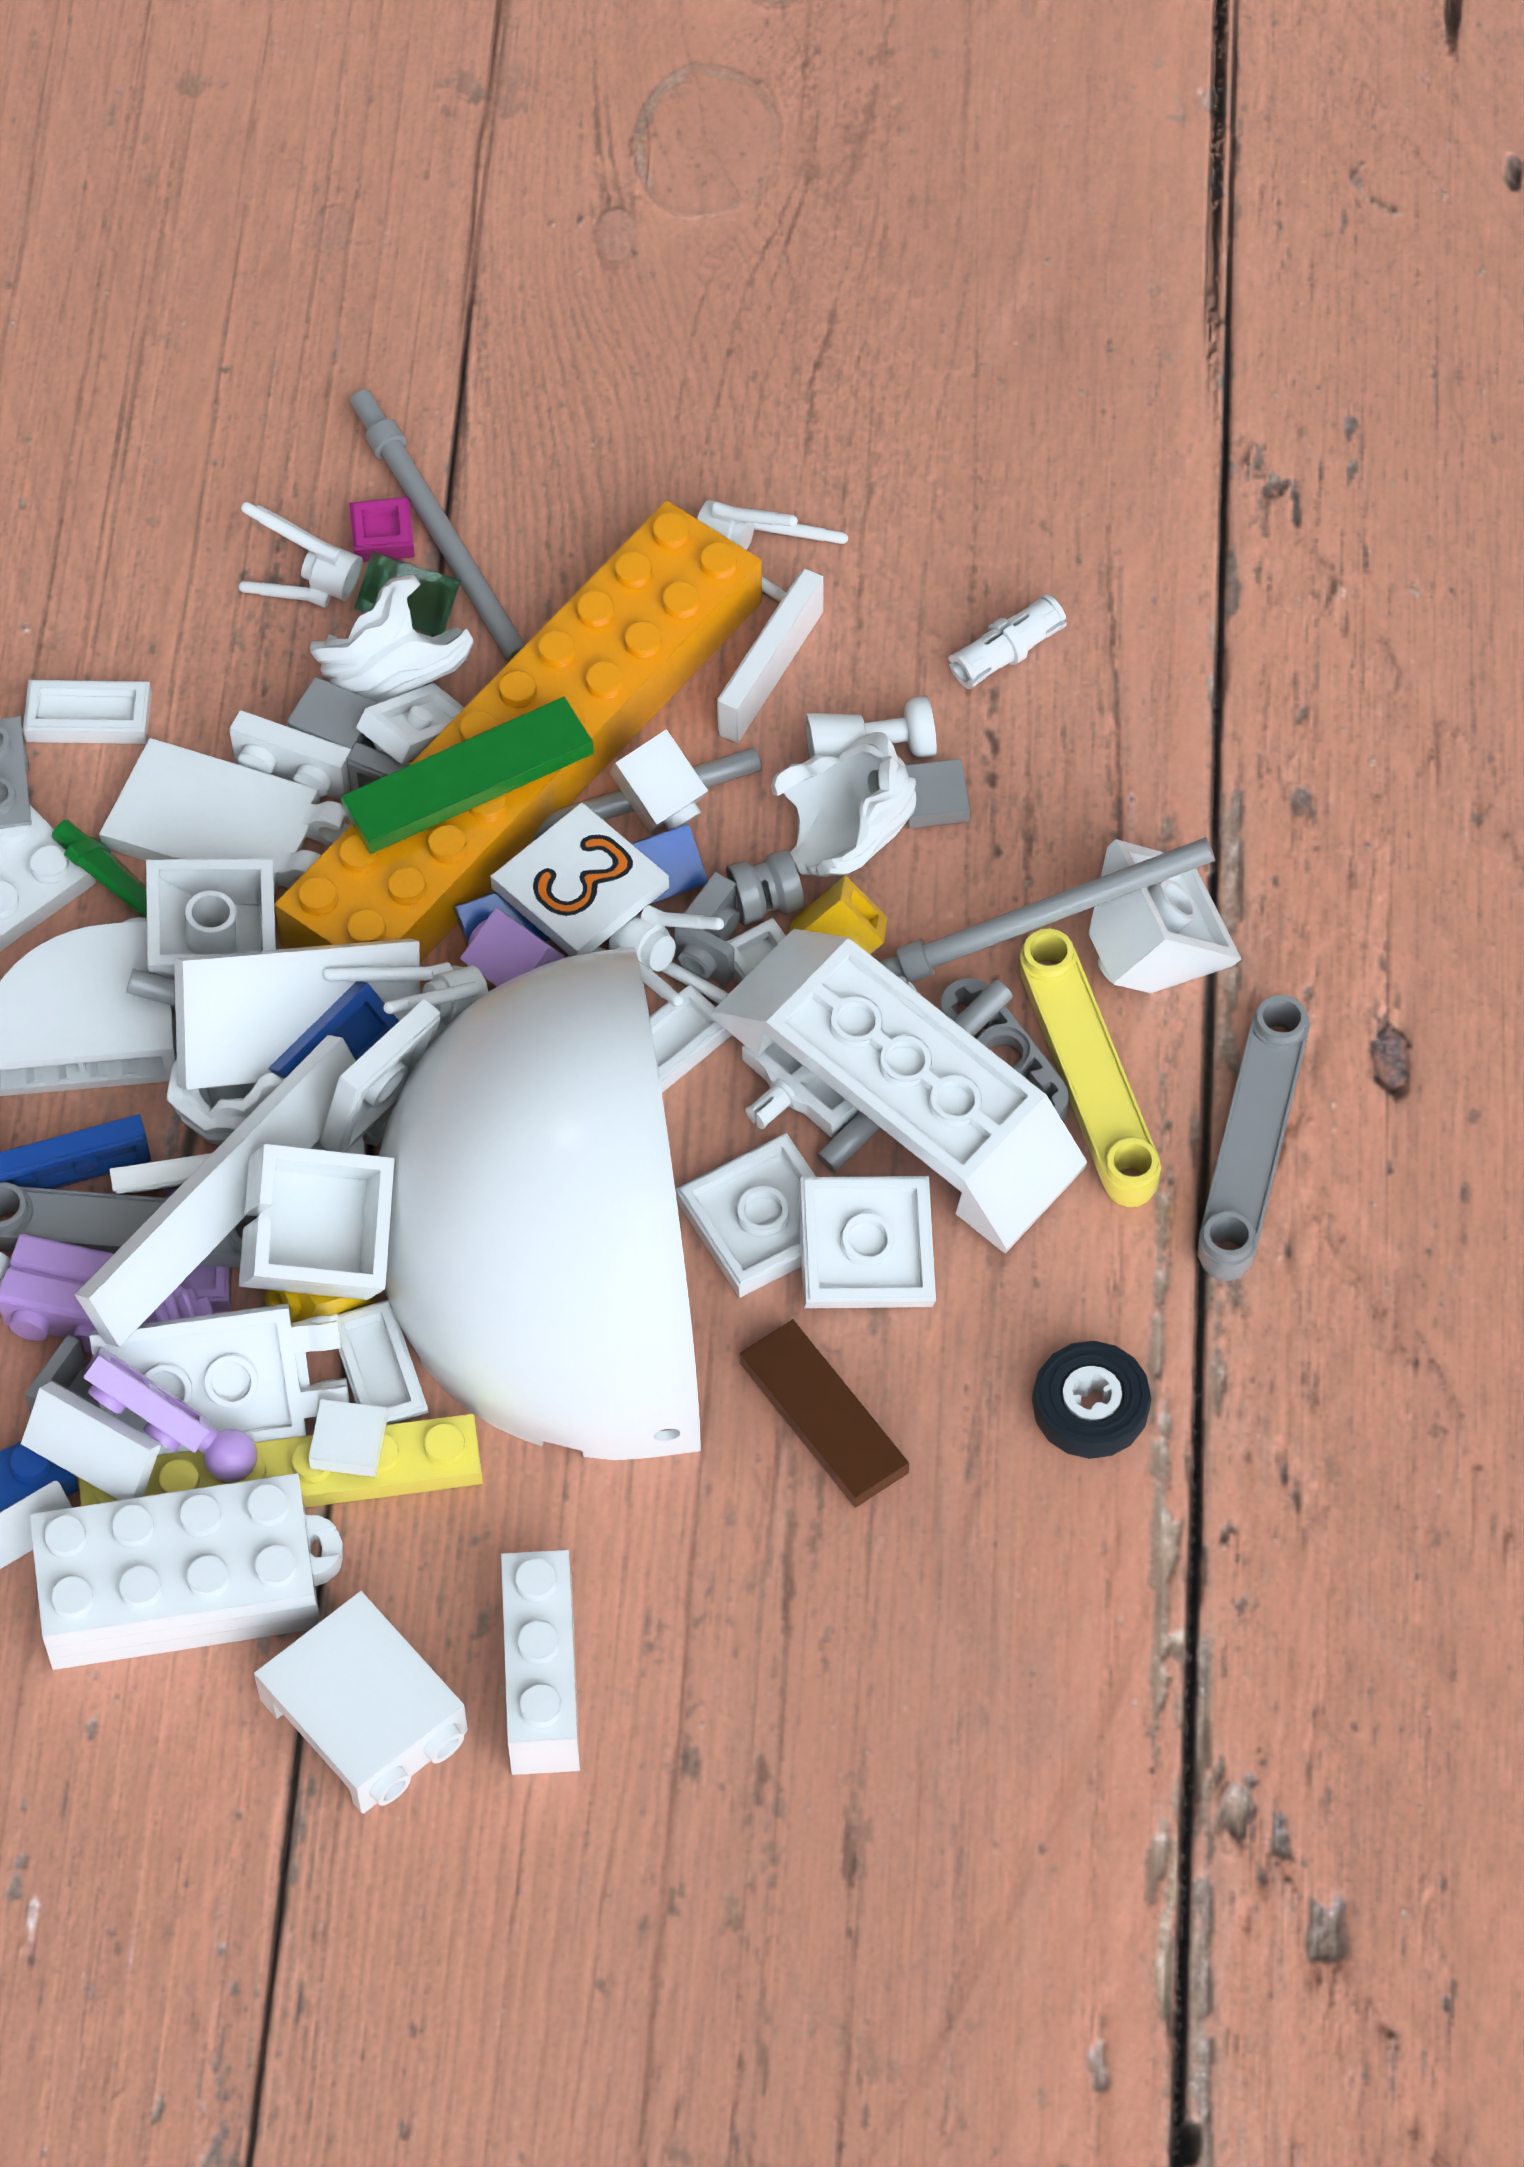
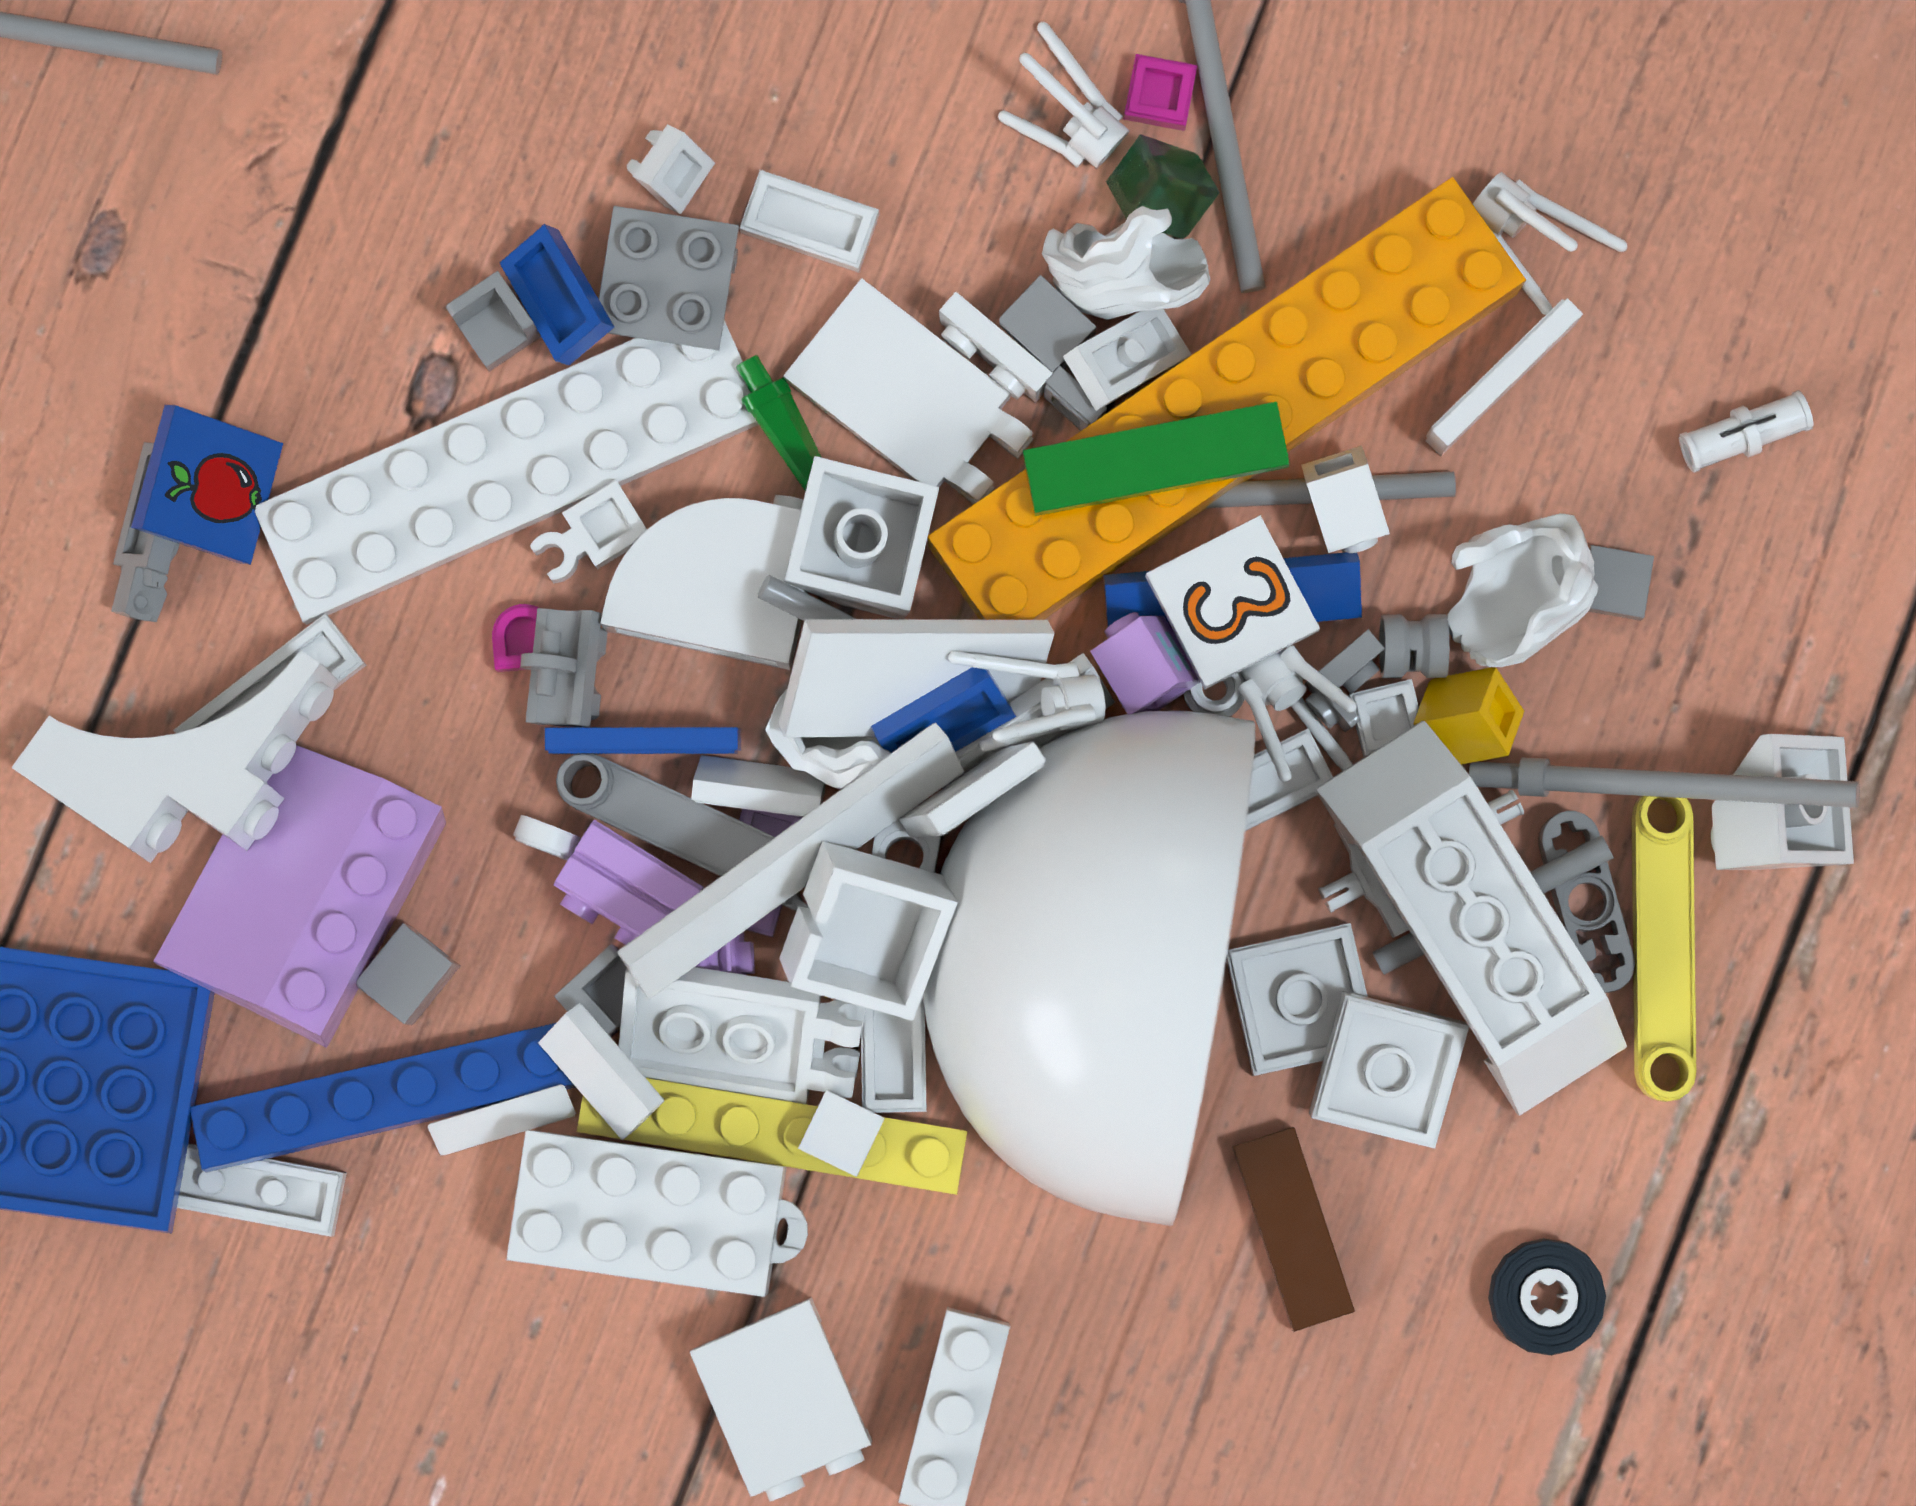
camera: 20 degrees right, 25 degrees up
(116, 1385) = (676, 1064): lavender plate -> none
(834, 733) = (1541, 494): white piece -> none
(1253, 1137) = (1796, 1070): light grey piece -> none

